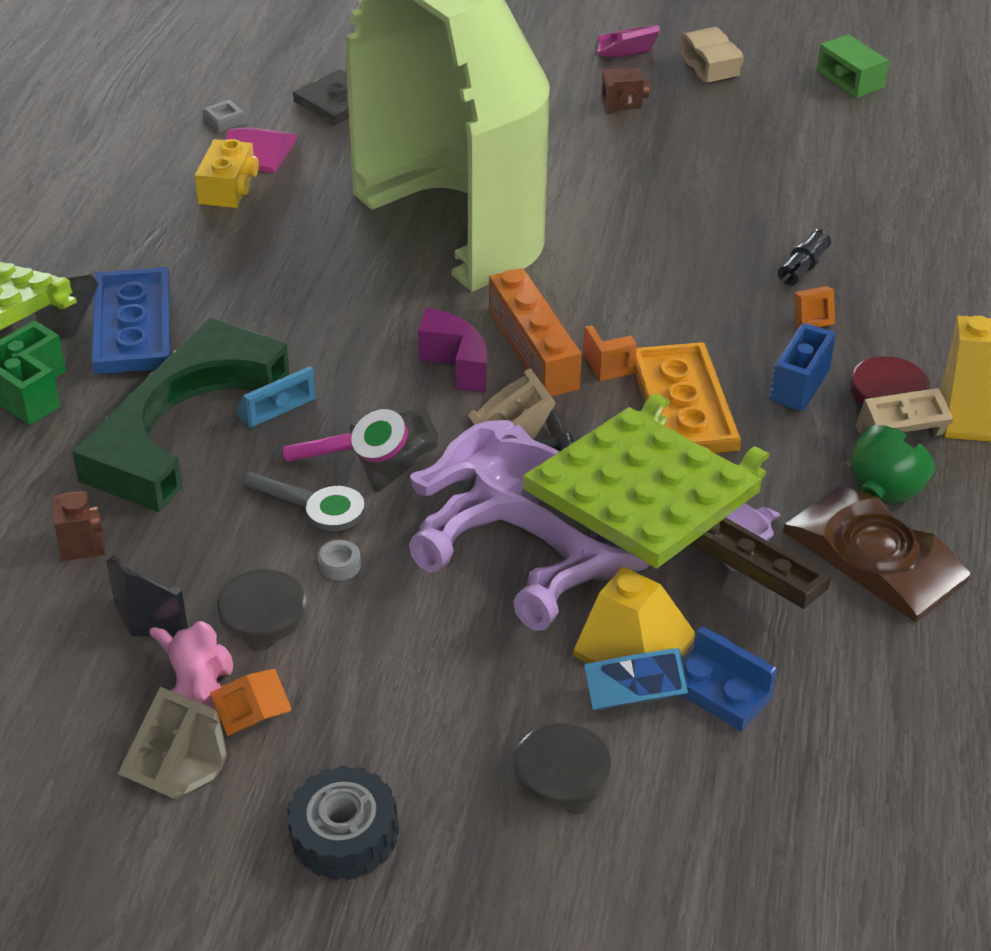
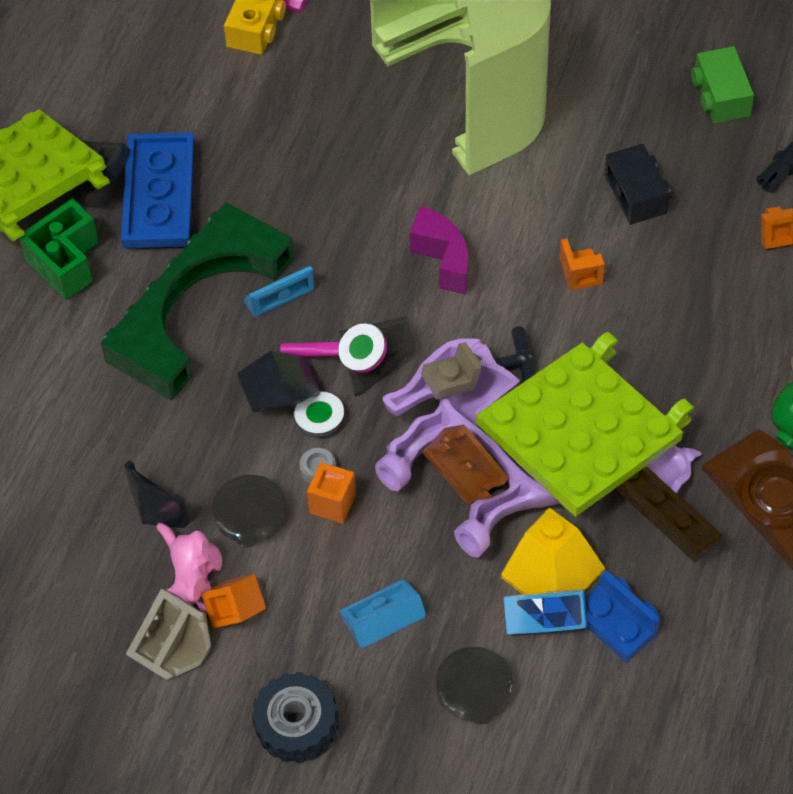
camera: 10 degrees right, 15 degrees up
(77, 526) = (102, 417): copper brick -> none
(281, 474) = (277, 381): none -> black slope
(360, 579) = (331, 492): none -> orange panel
(438, 702) = (383, 613): none -> dark azure slope
(491, 447) = (453, 374): none -> dark tan bracket
(515, 533) = (464, 463): none -> dark orange hinge
(522, 402) = (486, 318): tan slope -> none
(534, 331) = (515, 236): orange brick -> none
(654, 282) = (637, 183): none -> black brick
(695, 395) = (642, 318): light orange tile -> none
(725, 198) = (722, 85): none -> bright green brick
(802, 366) = (751, 299): blue brick -> none

